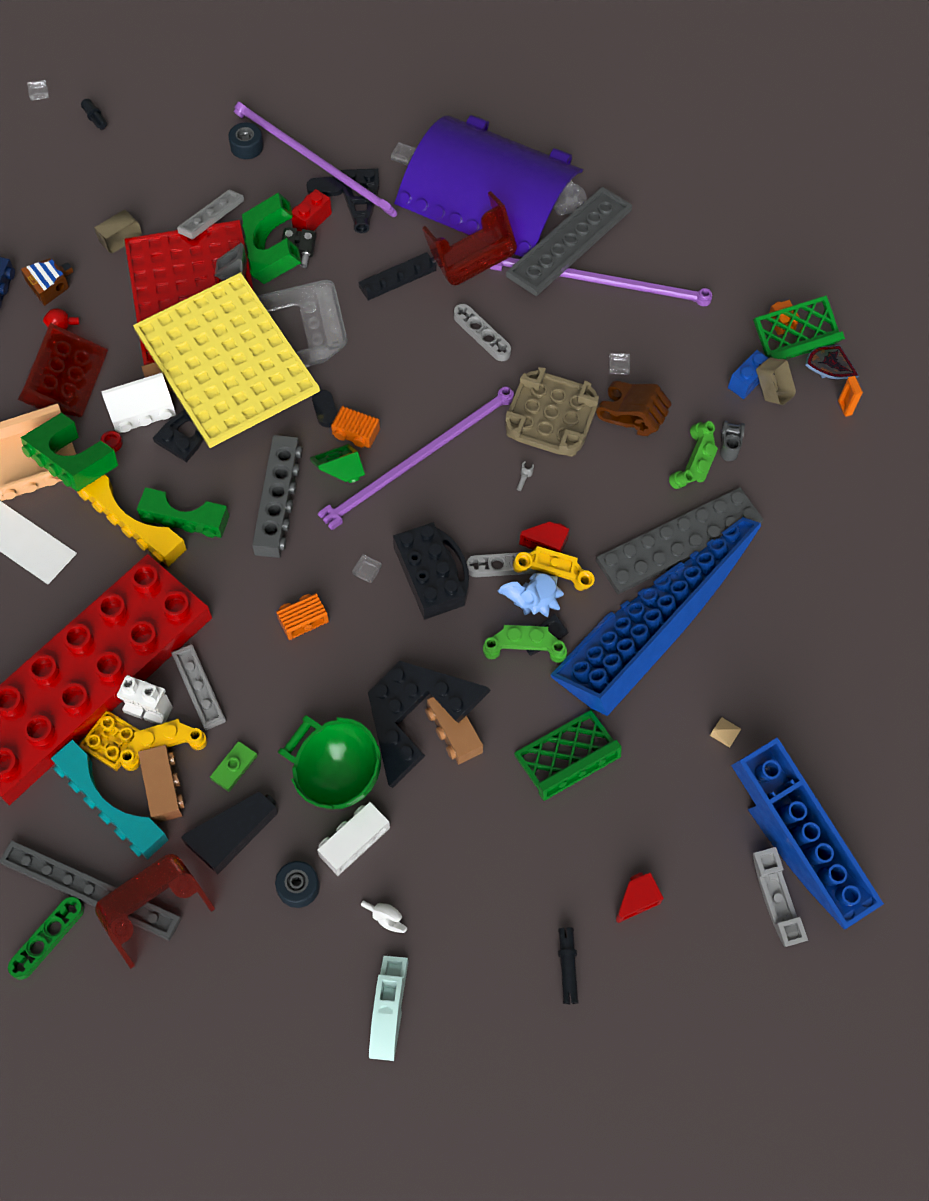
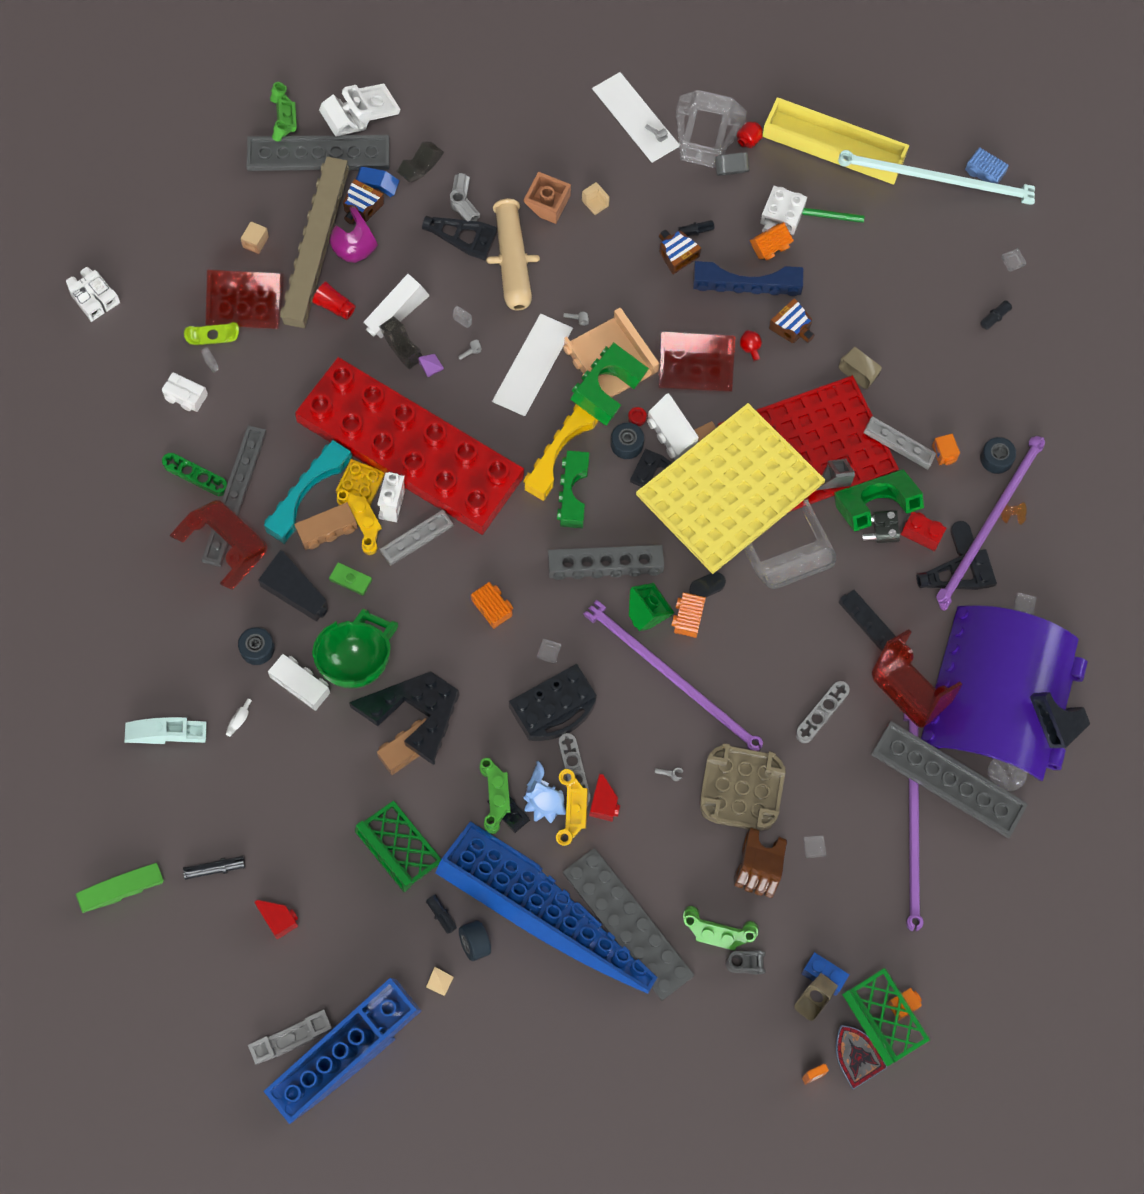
camera: 80 degrees right, 5 degrees up
(139, 452) = (627, 447): none -> black wheel
(228, 178) = (946, 449): none -> orange brick
(309, 135) = (1020, 511): none -> clear orange piece
(532, 139) = (1059, 725): none -> black arch
(581, 1085) = (119, 887): none -> bright green slope
(651, 719) = (441, 914): none -> black axle
(688, 685) = (474, 940): none -> black wheel

